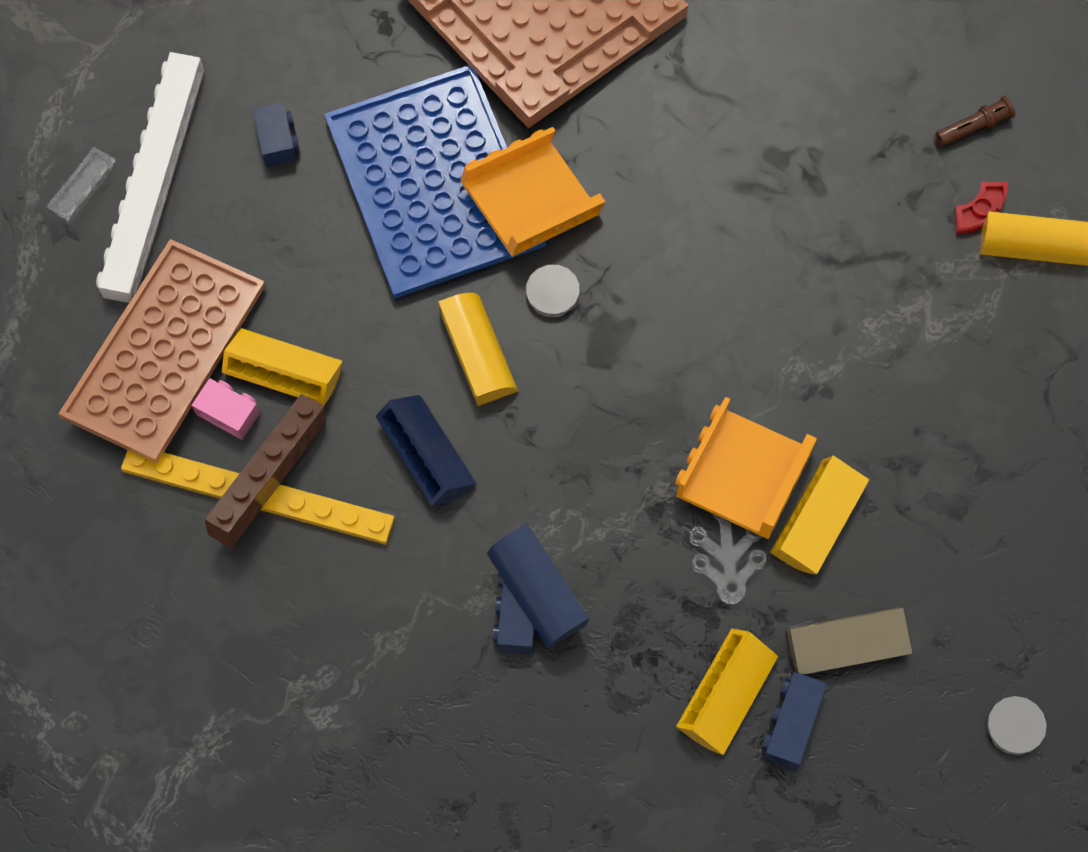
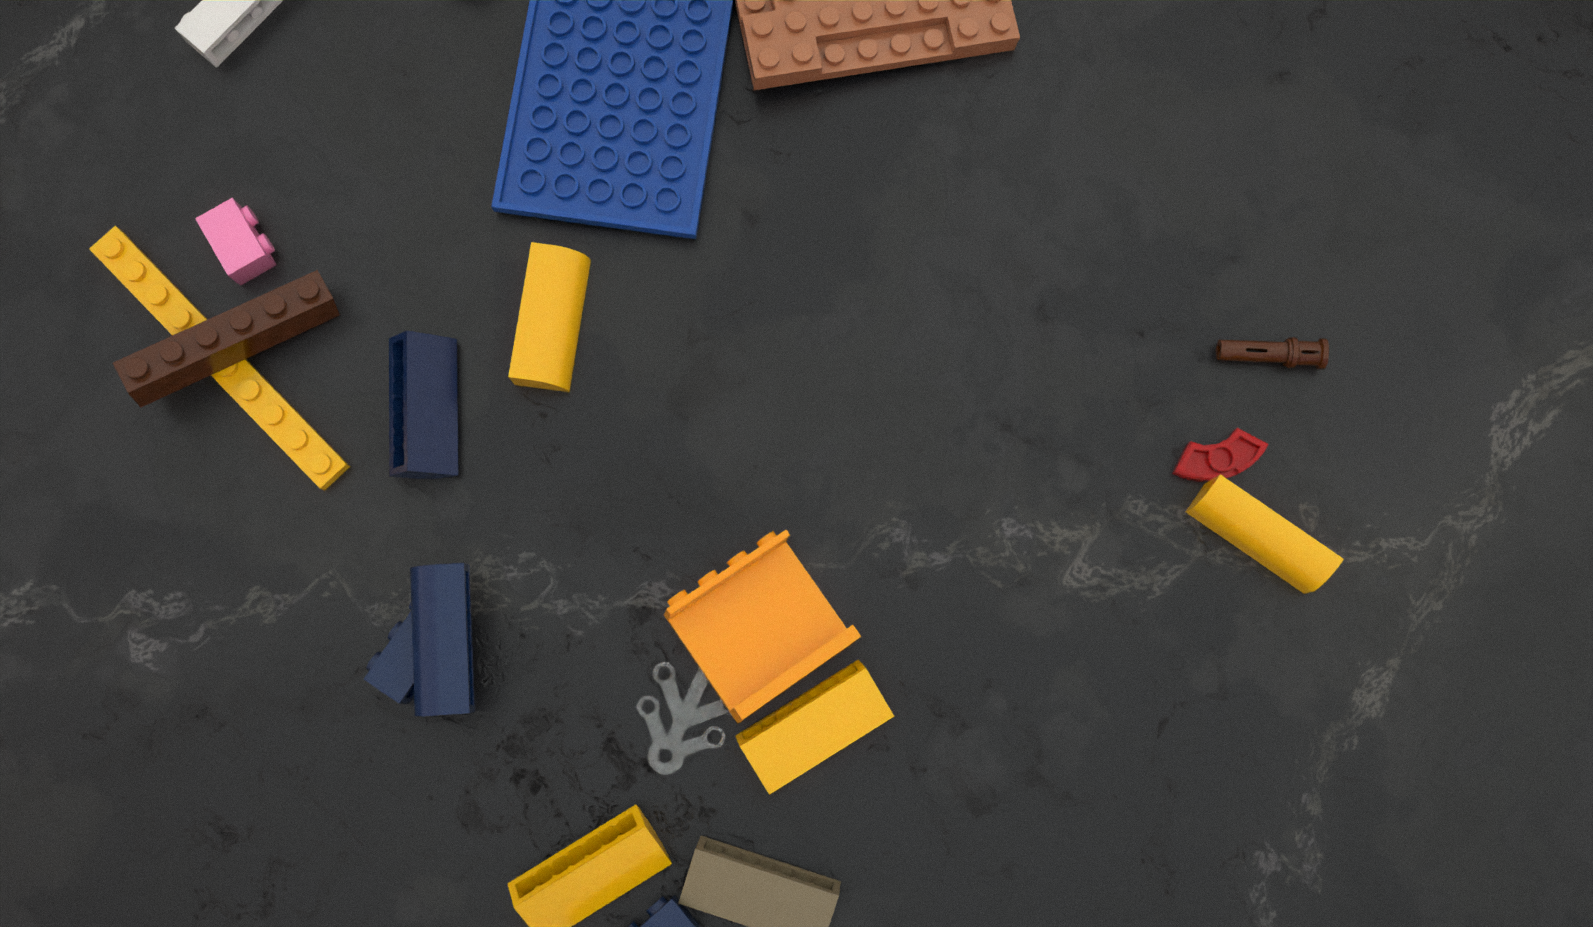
camera: 25 degrees right, 10 degrees up
(162, 351) = (204, 138): nougat plate -> none
(281, 366) = (324, 225): yellow brick -> none
(528, 192) = (707, 167): light orange panel -> none
(552, 290) = (672, 295): light grey tile -> none

